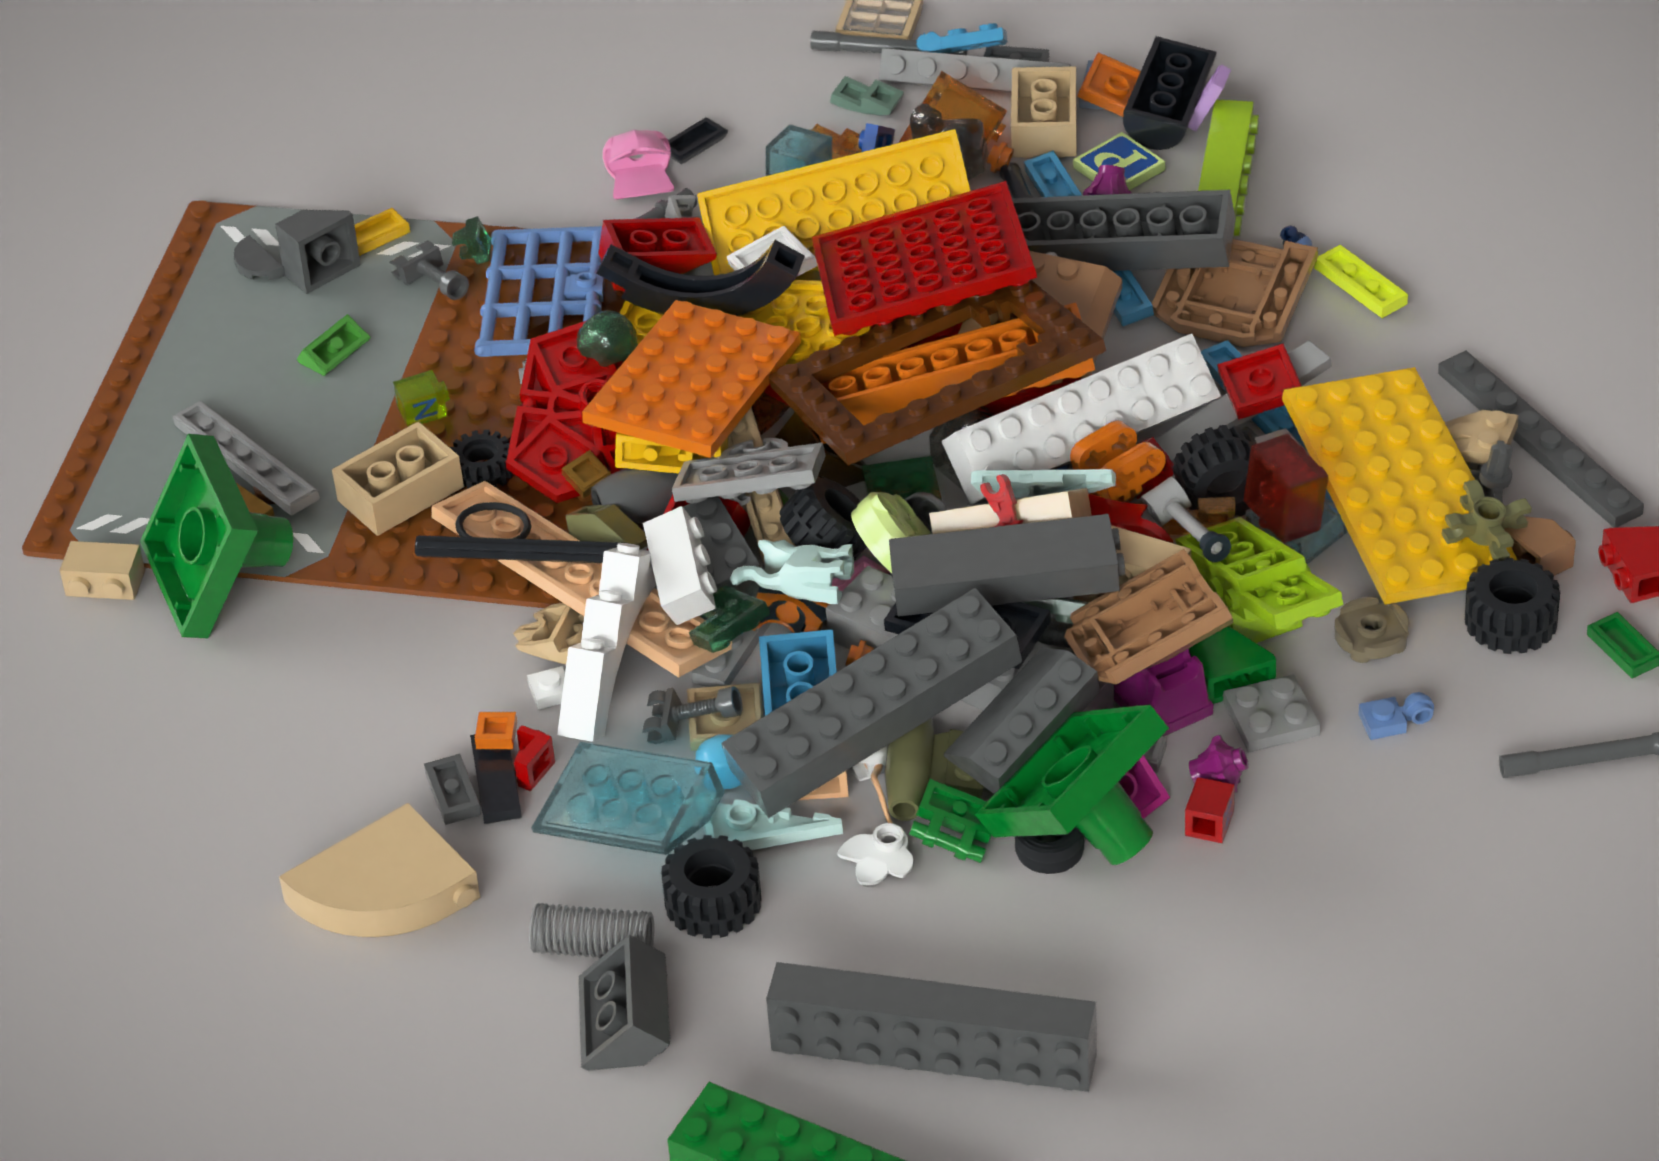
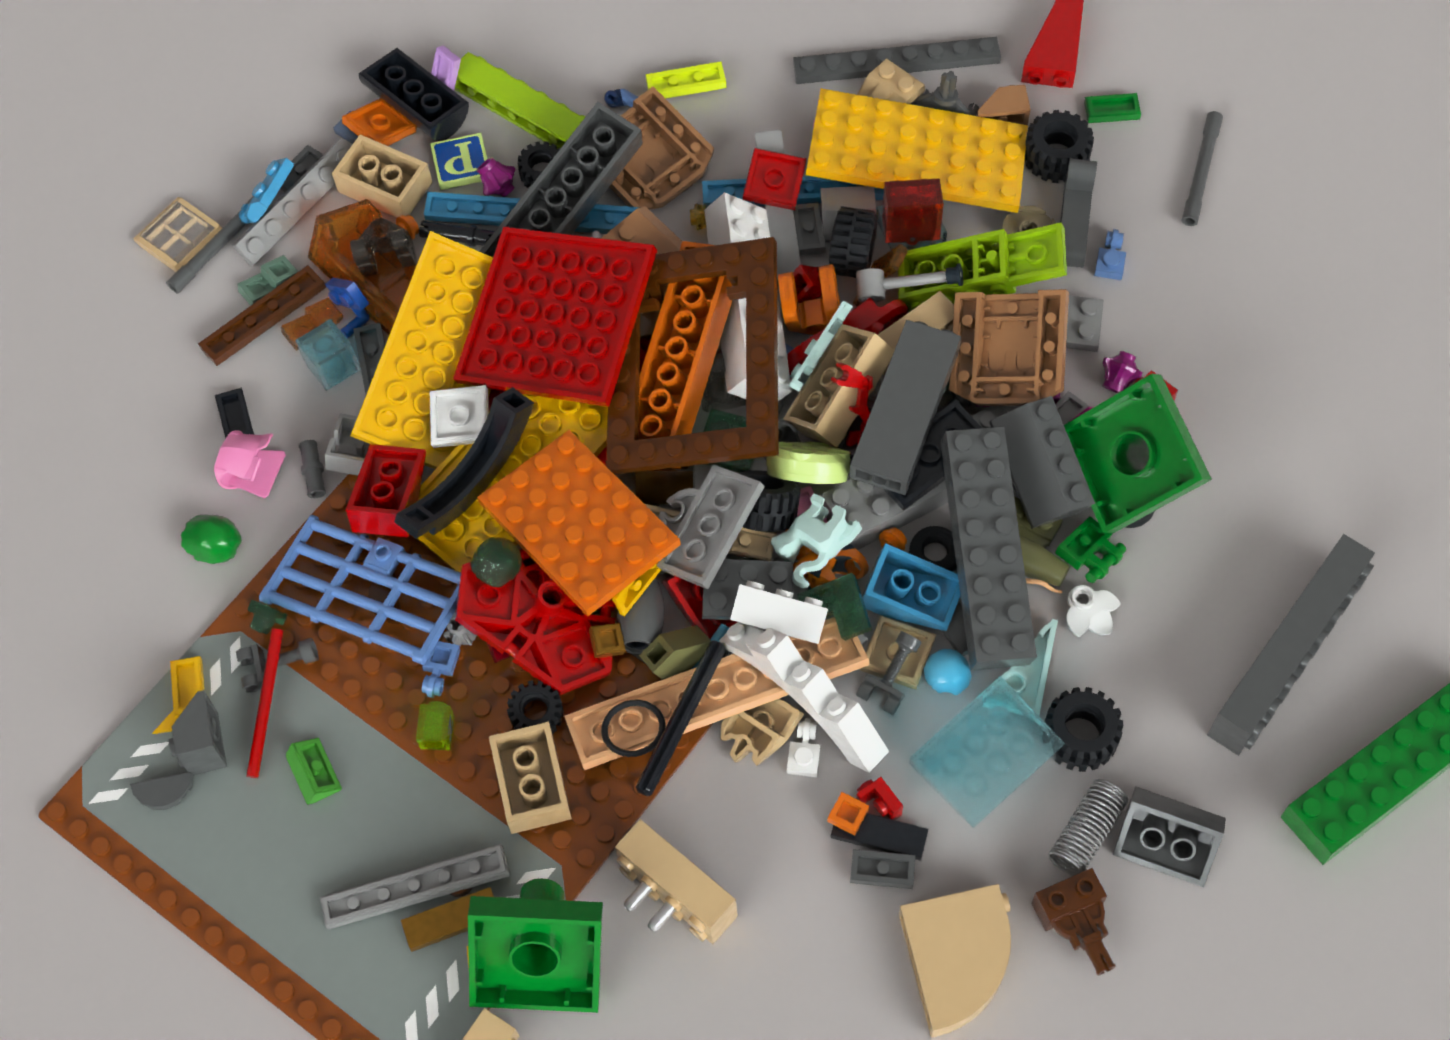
camera: 65 degrees left, 20 degrees up
(341, 626) = (676, 882): none -> tan piece
(380, 280) = (264, 703): none -> red piece
(481, 952) = (1078, 915): none -> reddish brown brick
(495, 374) = (441, 662): none -> medium blue plate
(543, 180) = (211, 538): none -> green hair
(817, 106) = (262, 315): none -> reddish brown plate
(1426, 657) = (1076, 209): none -> dark grey beam
(1486, 520) = (995, 119): olive pin -> none

